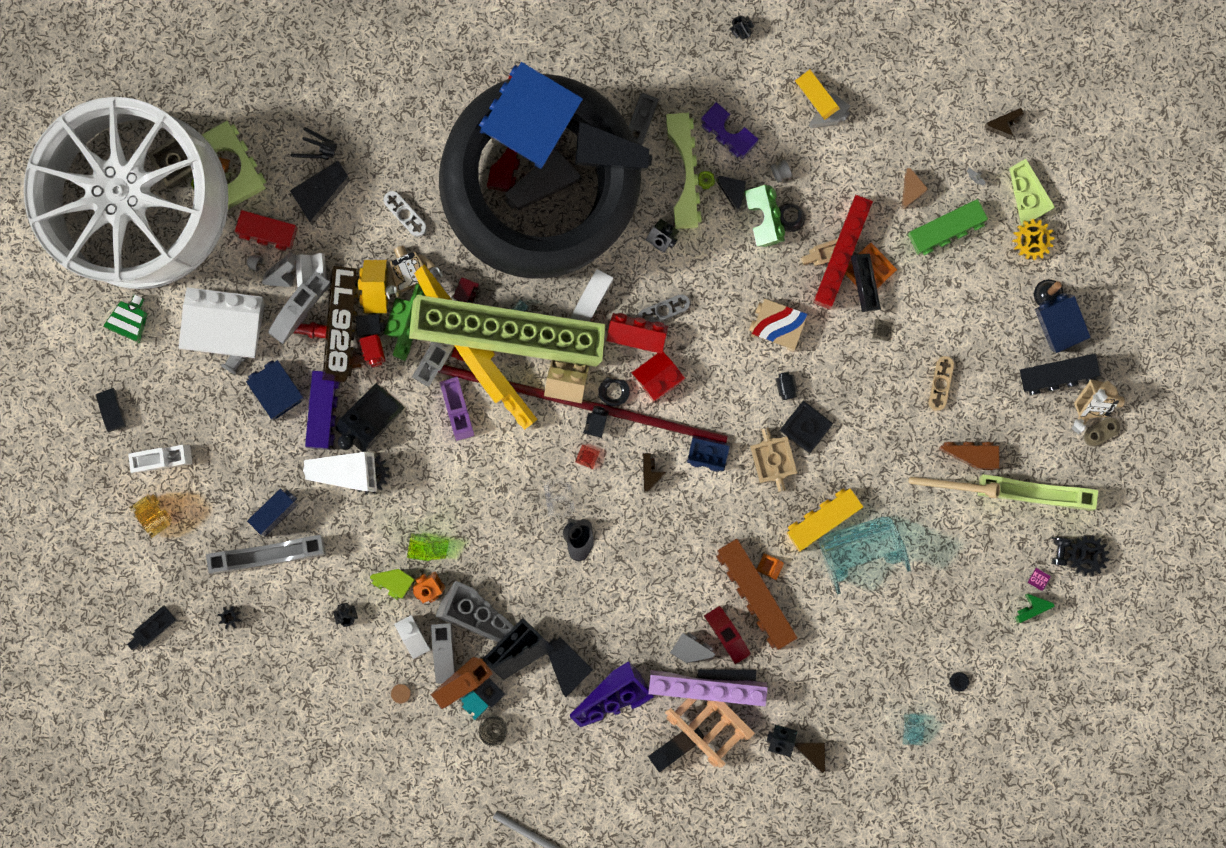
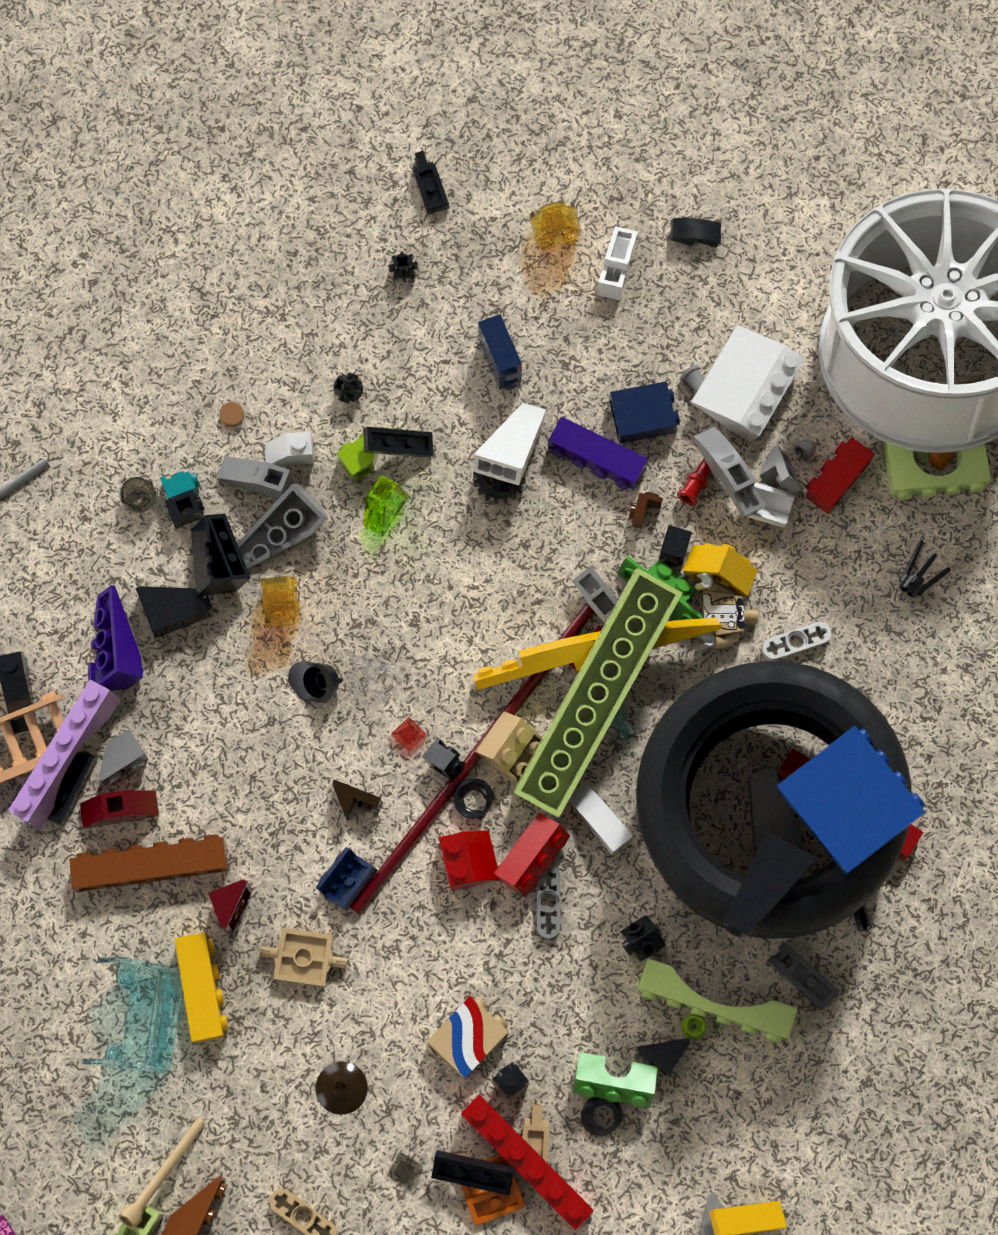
camera: 110 degrees right, 10 degrees down
(128, 319) = (793, 287): green torso -> none
(265, 555) = (456, 330): light grey arch -> none
(320, 190) = (863, 553): black wedge -> none
(339, 324) = (690, 508): dark brown brick -> none
(367, 419) = (568, 506): black slope -> none
(372, 350) = (642, 534): red brick -> none
(374, 557) = (398, 442): none -> black plate
(428, 587) = (336, 489): orange brick -> none
(457, 409) = (532, 606): medium lavender slope -> none
(462, 682) = (209, 481): dark orange slope -> none
(465, 291) = (669, 671): dark red brick -> none
(531, 589) = (279, 602): none -> clear yellow brick
(739, 144) = (764, 1070): dark purple arch -> none
(741, 27) = (877, 1159): black gear -> none
(760, 523) = (230, 903): none -> dark red slope
(770, 566) = (176, 897): orange slope -> none
(781, 171) = (665, 1128): light grey wheel -> none
(786, 386) = (387, 1014): black brick -> none
(794, 285) = (510, 1080): none -> black brick
(806, 427) = (325, 1016): black plate -> none
(841, 403) = (355, 1090): none -> dark brown dish

